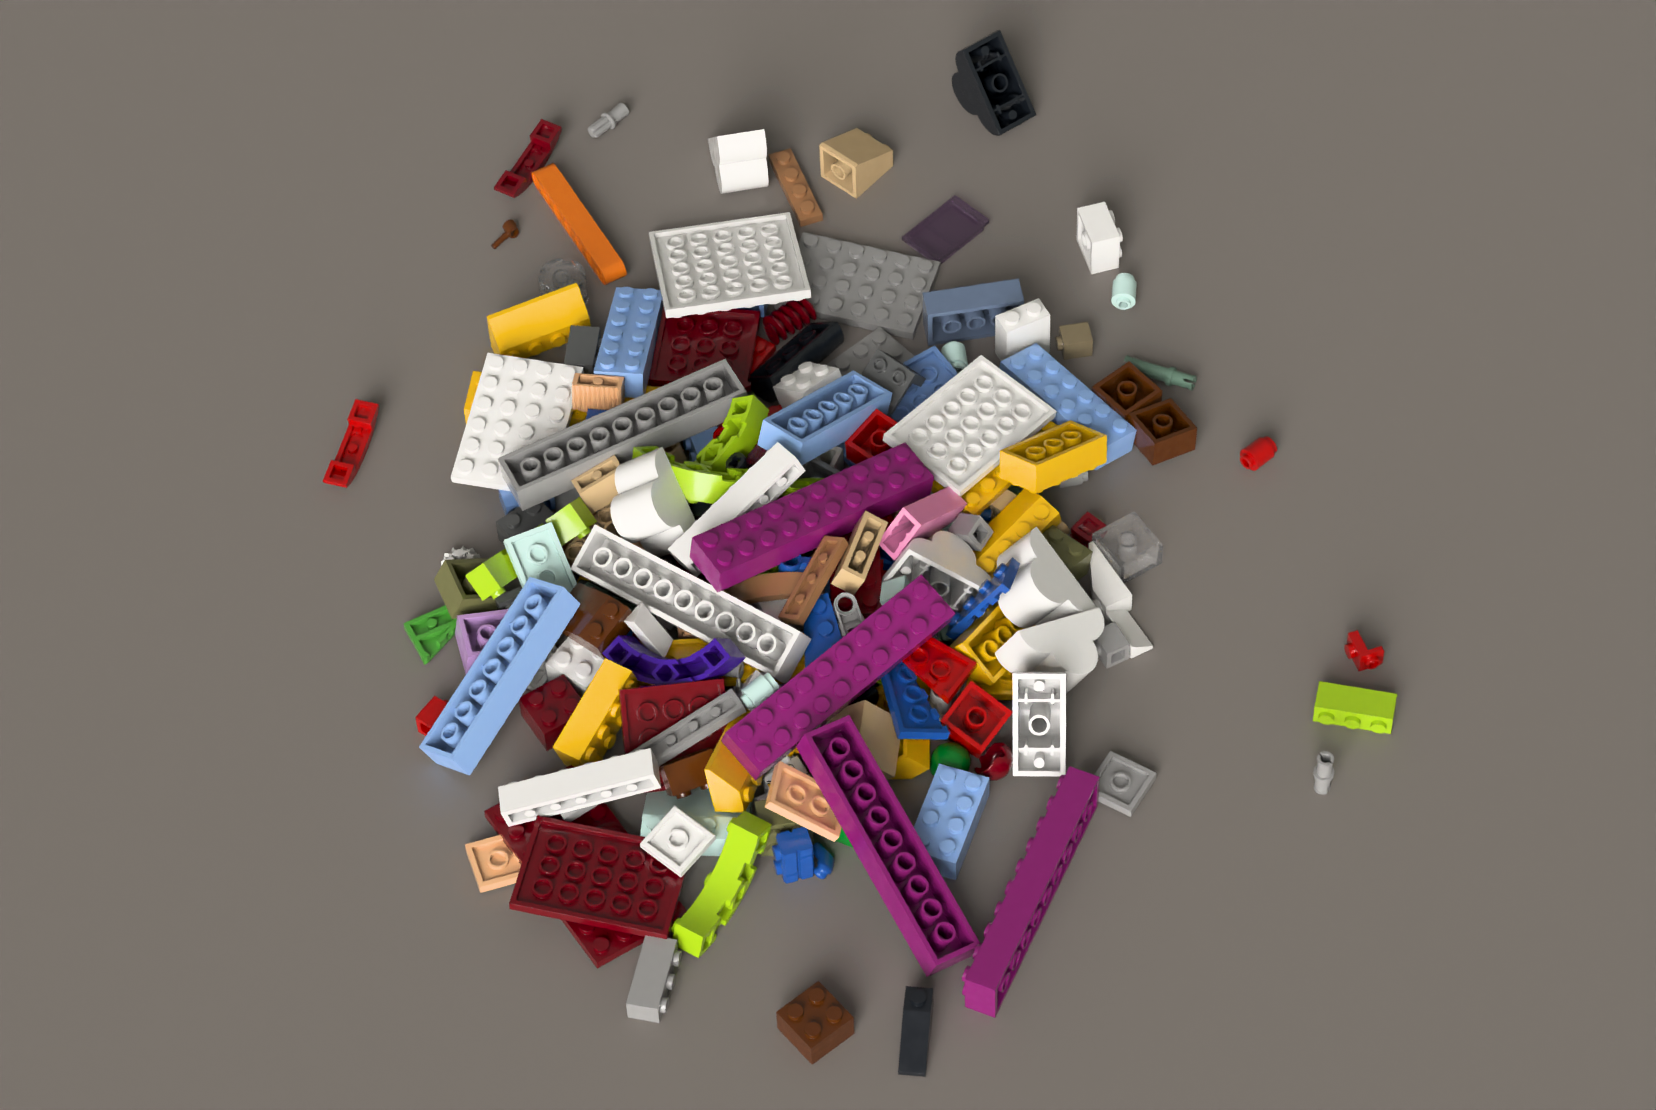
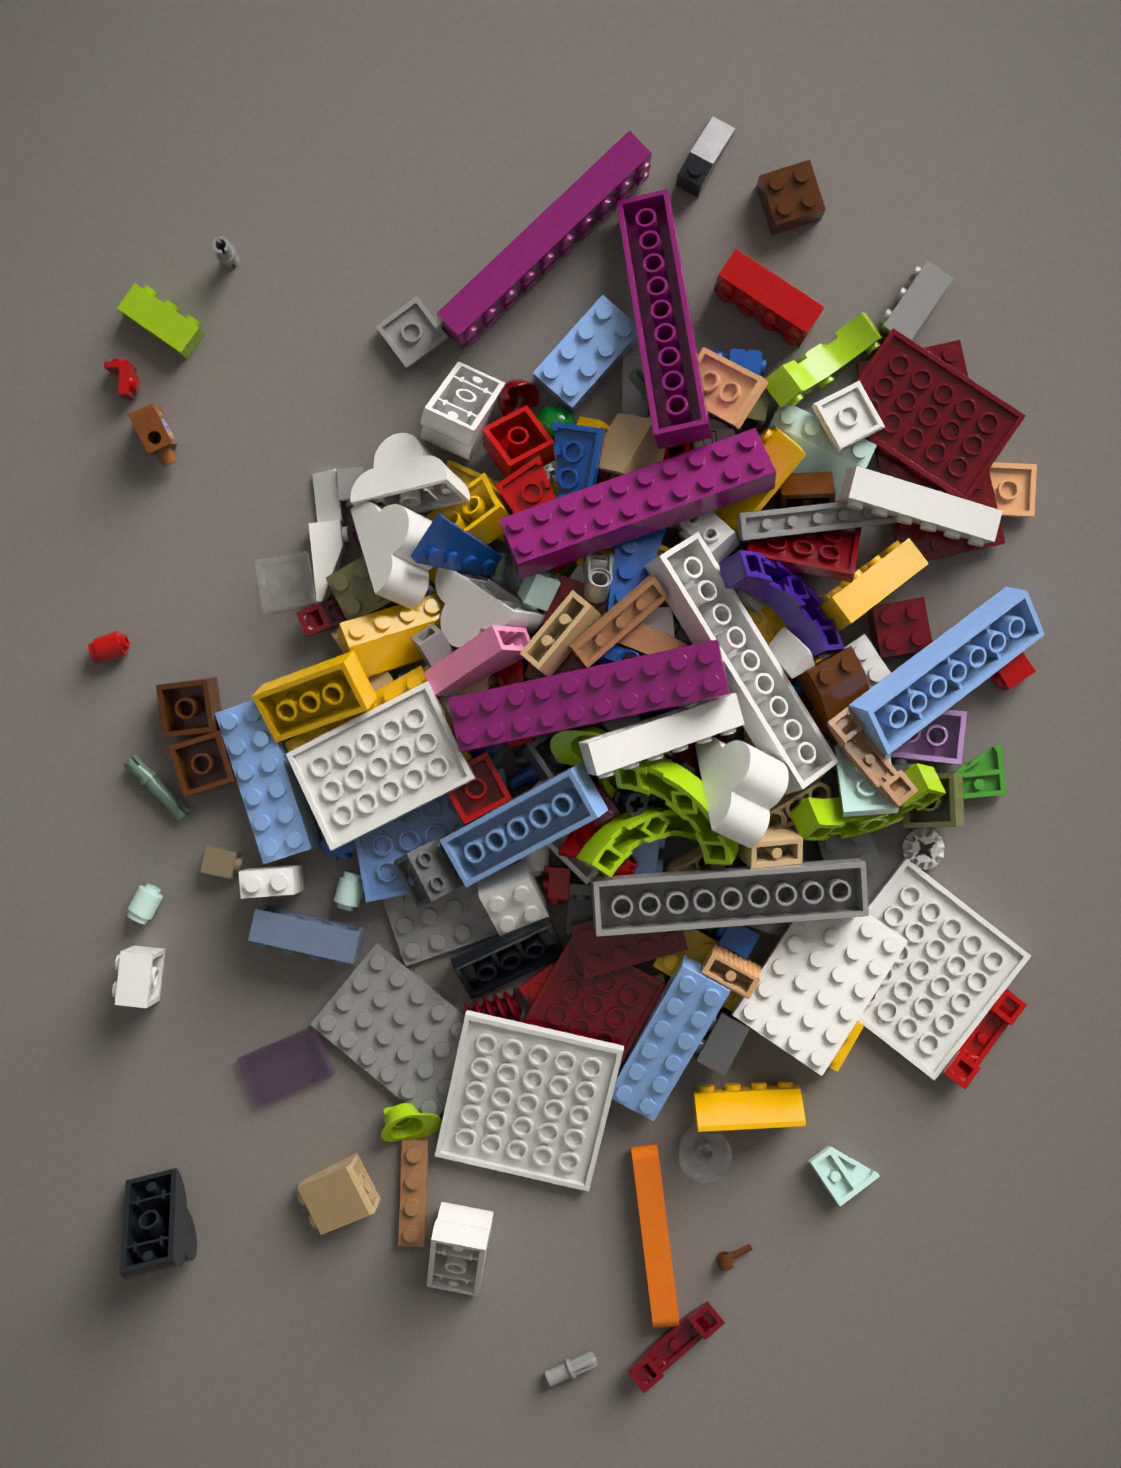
camera: 155 degrees left, 35 degrees up
(407, 485) = (944, 974): none -> white plate
(436, 315) = (841, 1174): none -> light aqua wing
(527, 564) = (869, 760): none -> medium nougat slope
(759, 690) = (720, 518): light aqua brick -> none
(797, 921) = (767, 298): none -> red brick
(827, 226) = (406, 1123): none -> lime piece
(1310, 617) = (150, 422): none -> dark orange torso

